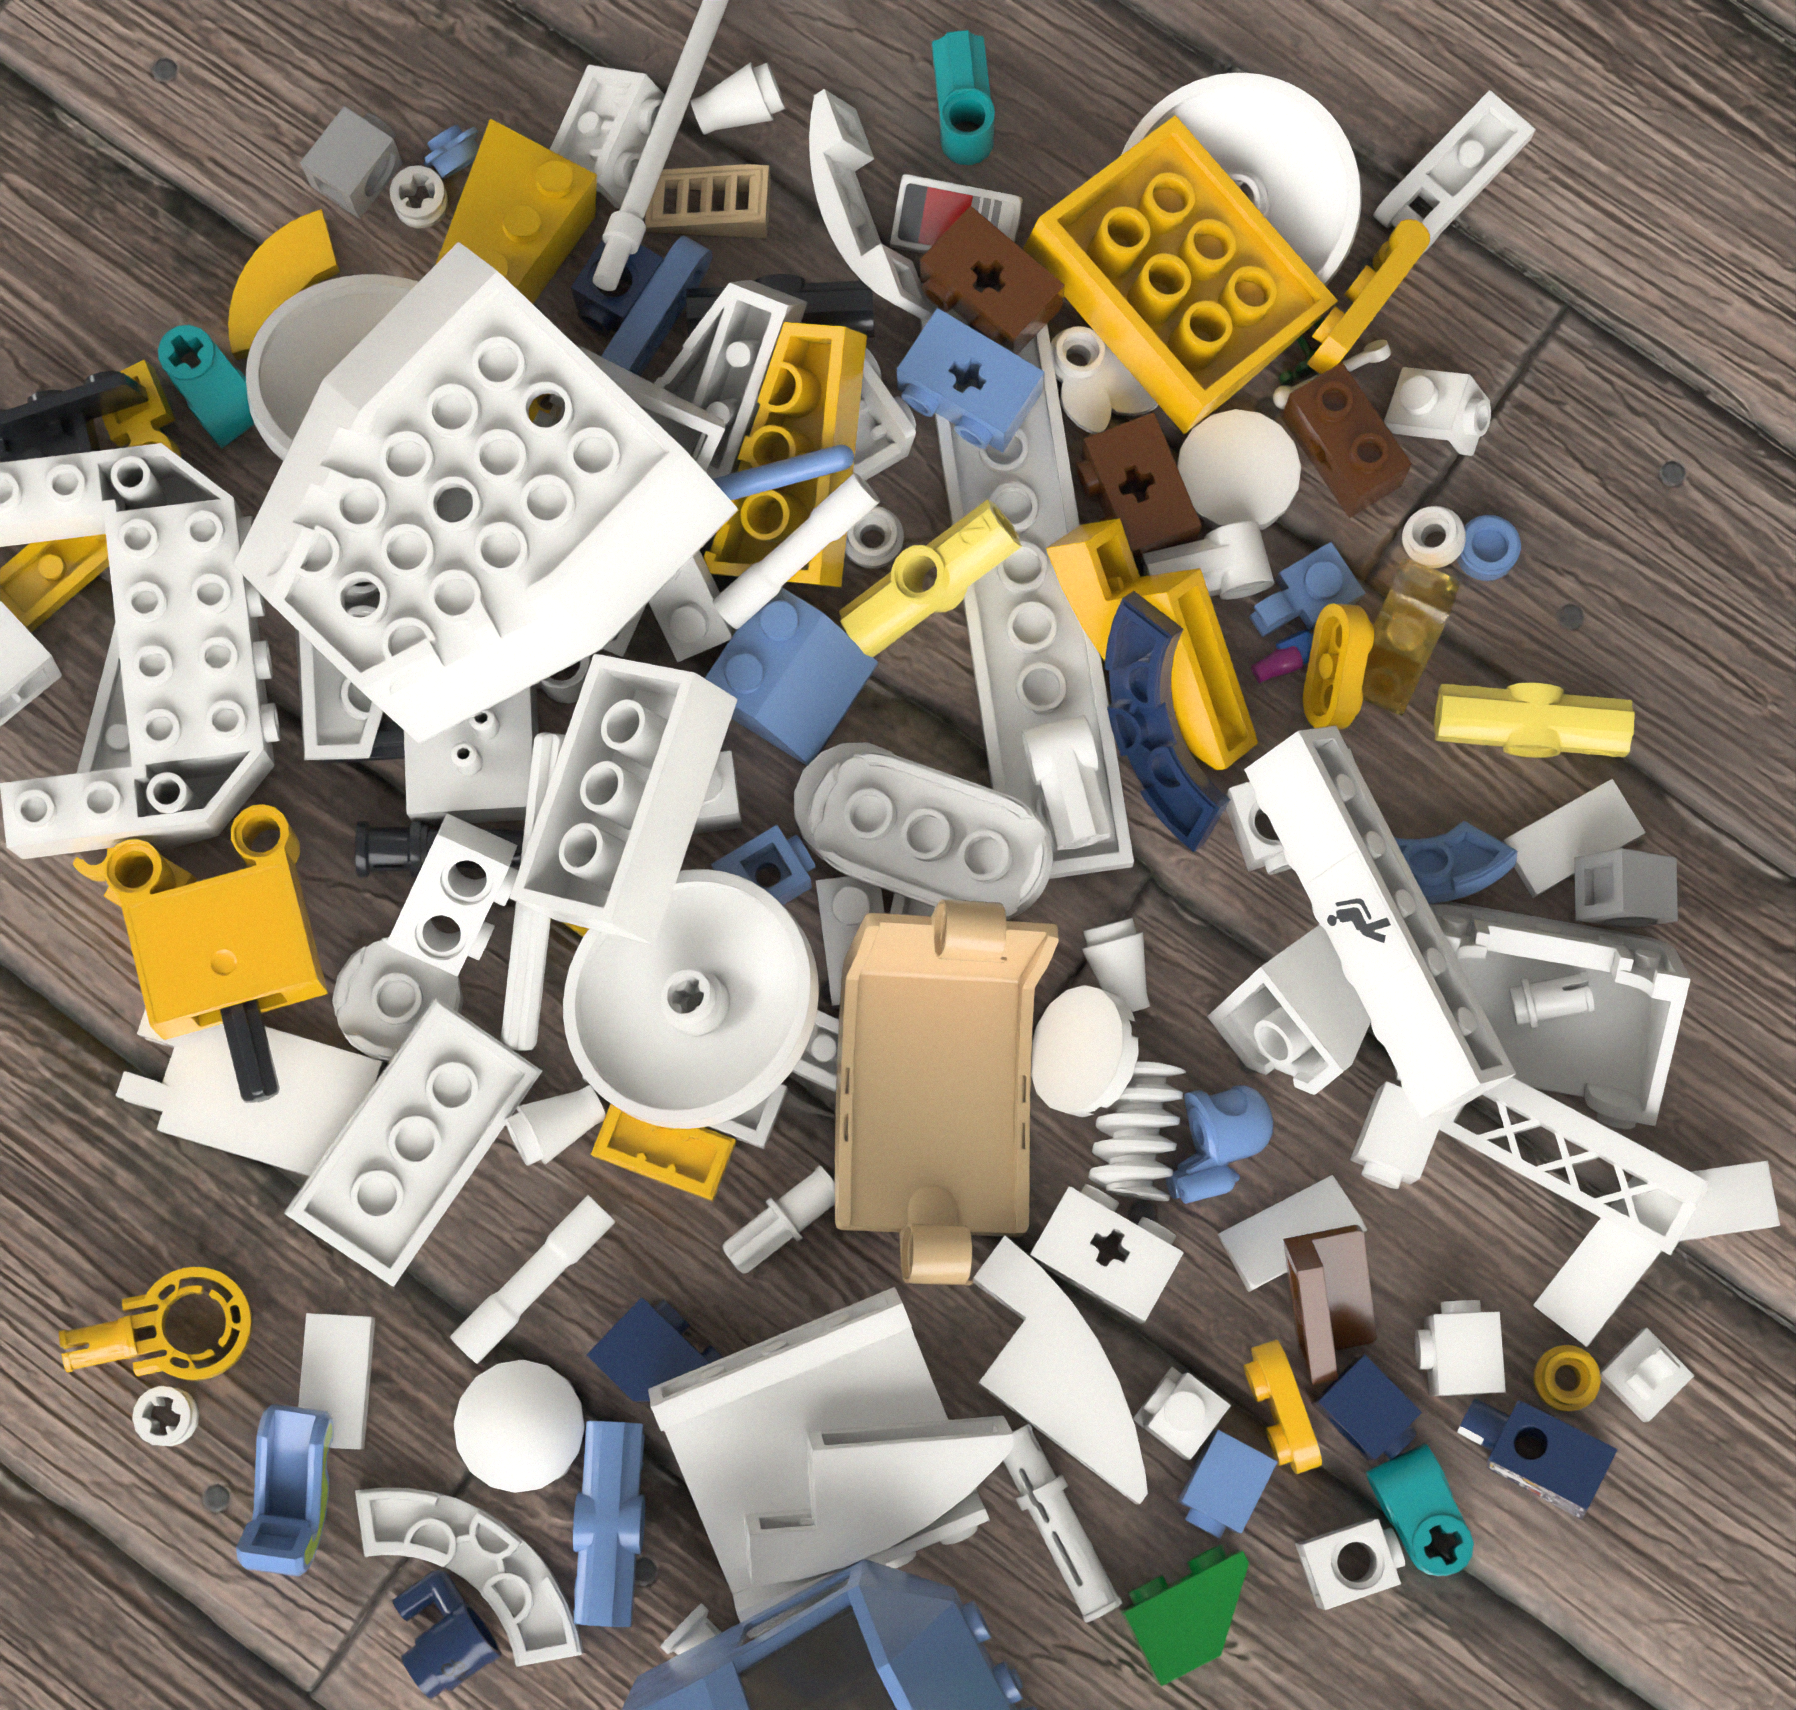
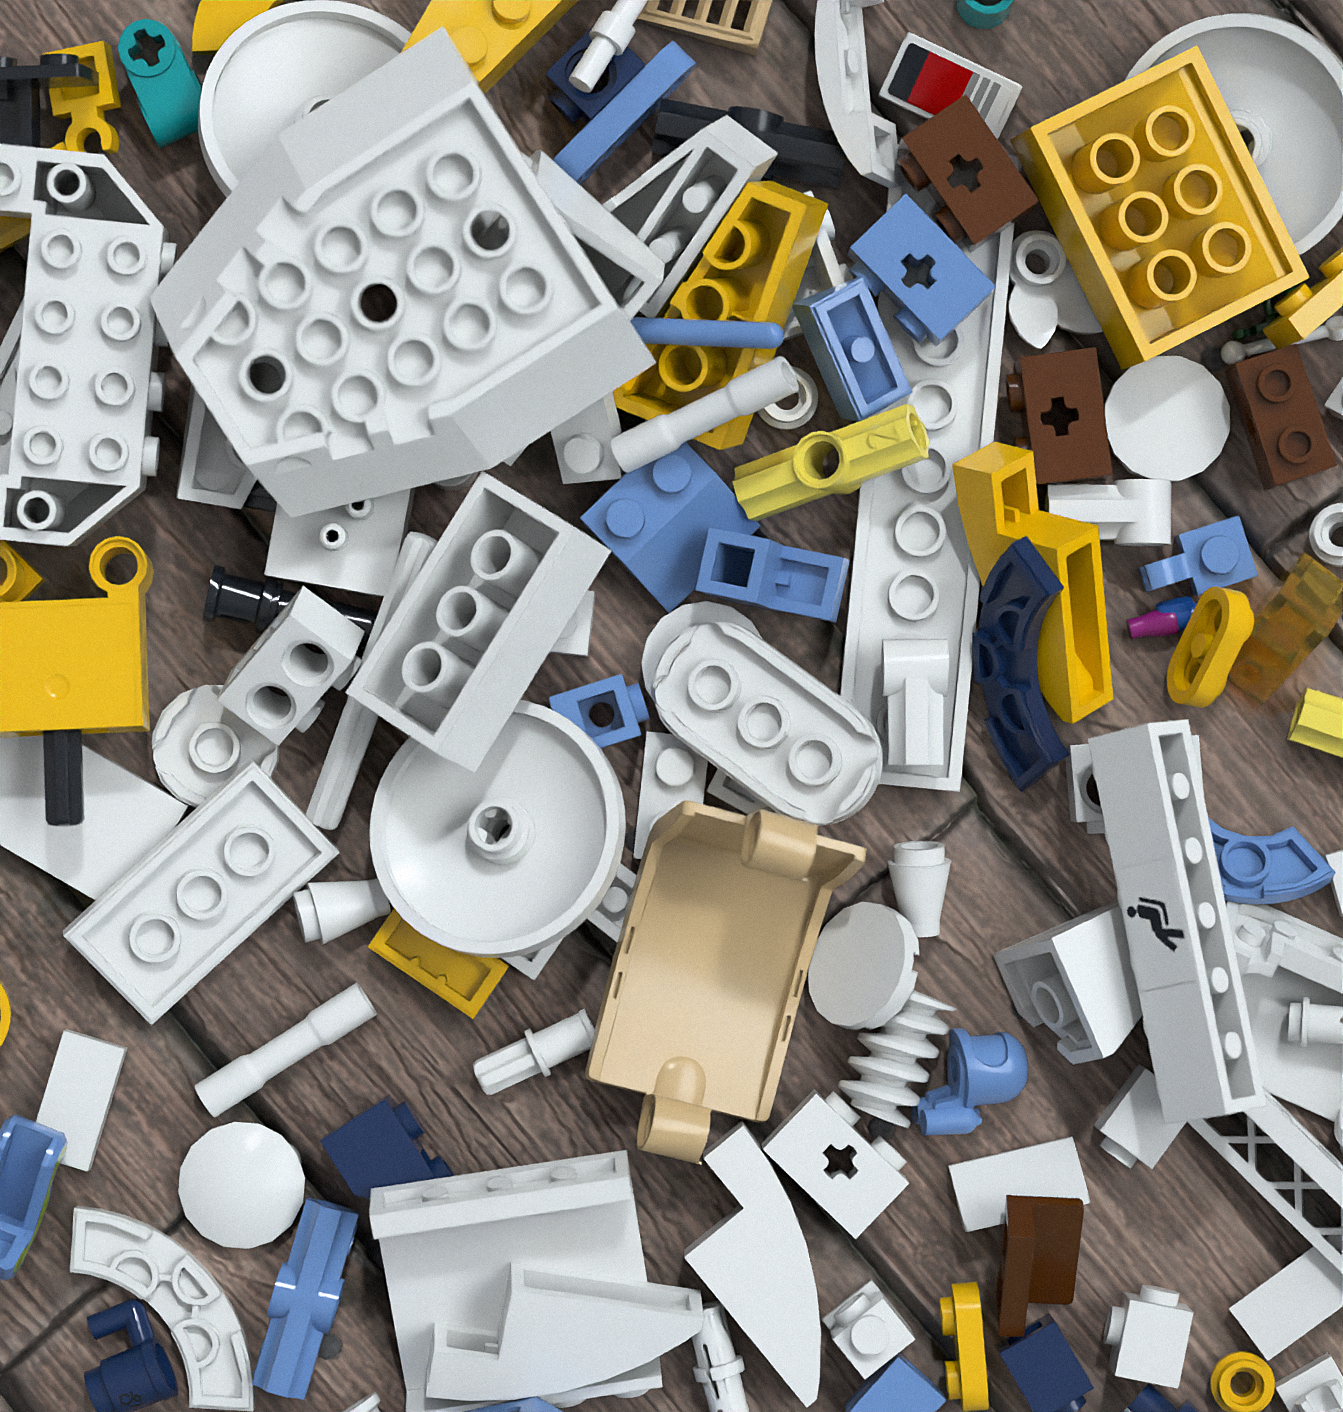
camera: 15 degrees right, 10 degrees up
(897, 704) = (771, 575): none -> medium blue brick
(922, 468) = (852, 349): none -> medium blue slope

